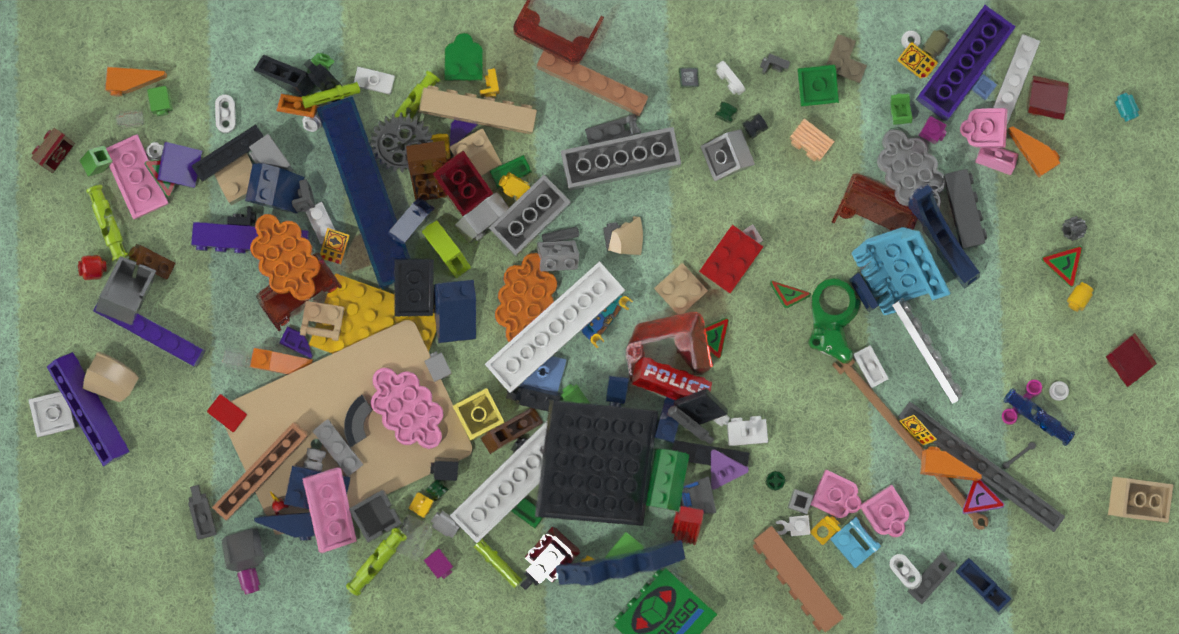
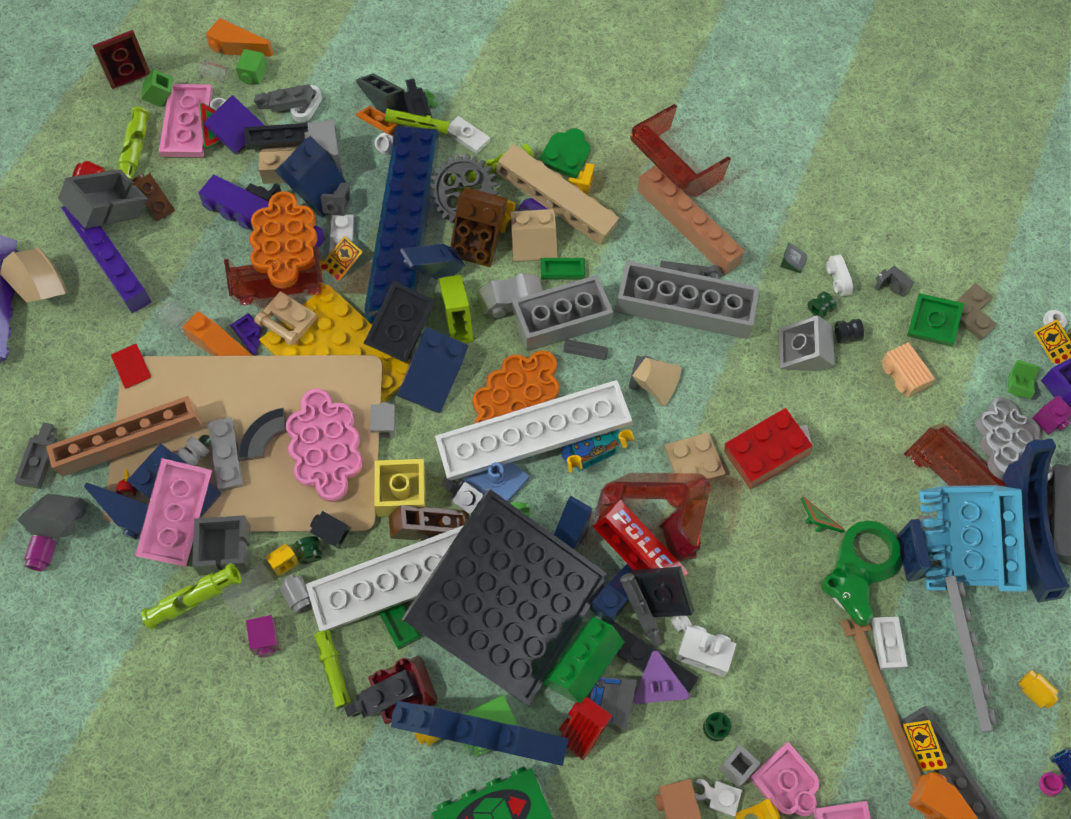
camera: 25 degrees right, 20 degrees down
(207, 119) = (285, 98): none -> dark grey hinge
(462, 183) = (505, 244): dark red slope -> none
(513, 185) = (557, 274): yellow brick -> none
(558, 255) = (572, 365): light grey bracket -> none
(716, 336) = (714, 525): piece -> none
(983, 353) = (1038, 689): none -> yellow brick

